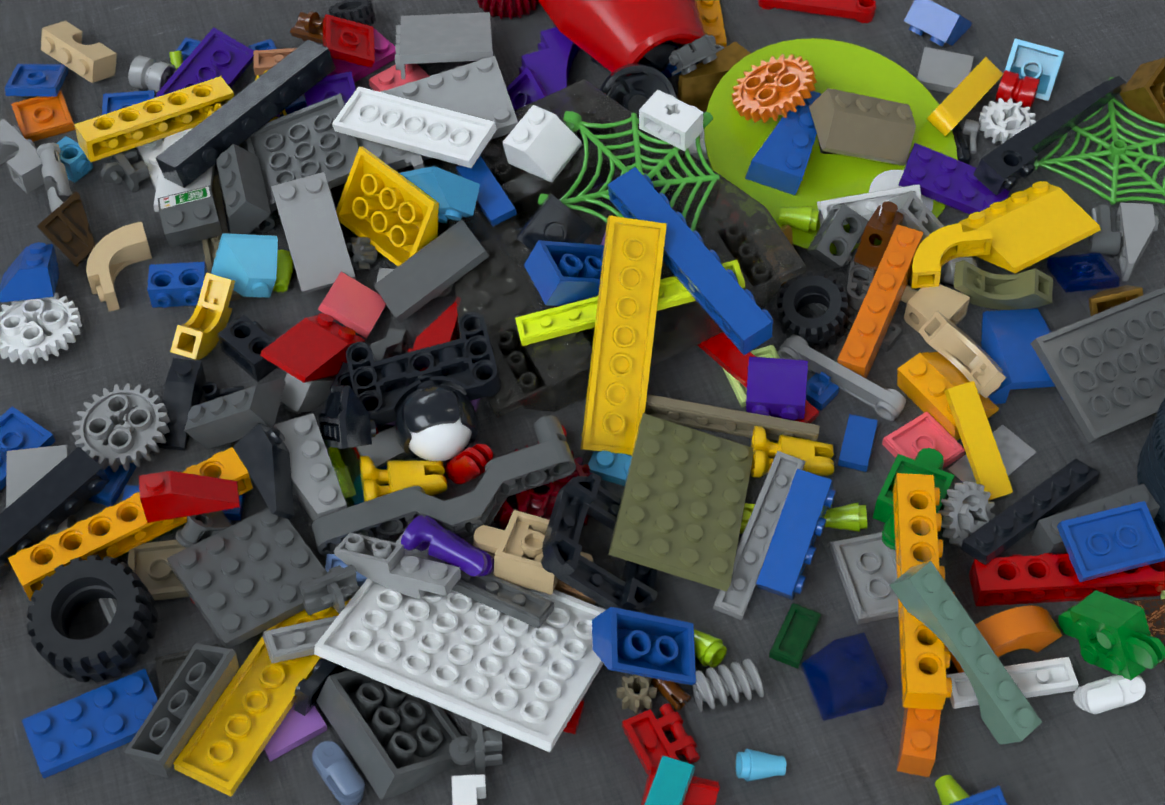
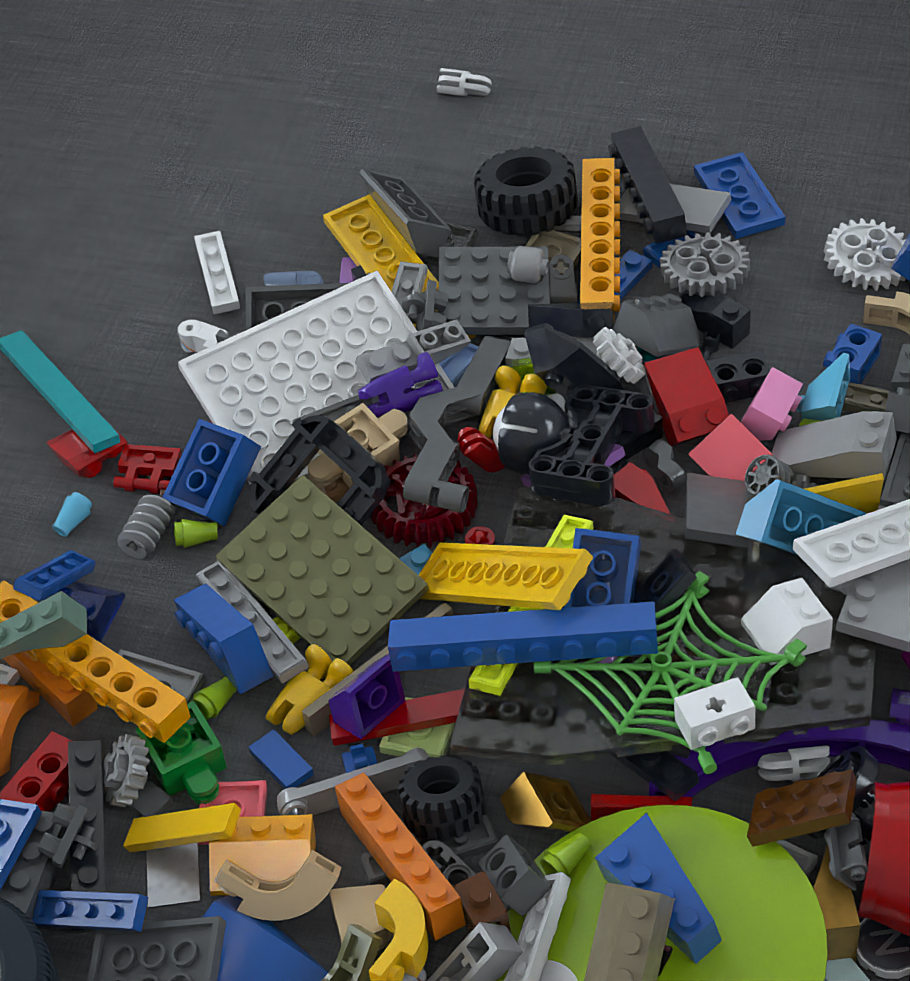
camera: 130 degrees right, 5 degrees down
(90, 723) = (452, 187): blue plate -> none
(184, 494) = (578, 250): red slope -> none
(211, 315) = (786, 353): yellow arch -> none
(220, 538) = (527, 264): none -> light grey head
(284, 299) = (771, 405): none -> bright pink slope
(308, 397) = (619, 354): none -> white gear
(369, 260) = (766, 473): none -> dark grey wheel
(490, 196) = (767, 570): blue tile -> none
(684, 77) = (802, 808): none -> reddish brown plate
(774, 88) = (708, 882): orange gear -> none
(795, 635) = (150, 603): dark green tile -> none
(851, 690) = (54, 575): none -> blue tile
(1058, 492) = (72, 819): none -> dark grey hips
(1092, 441) = (90, 910): none -> blue plate

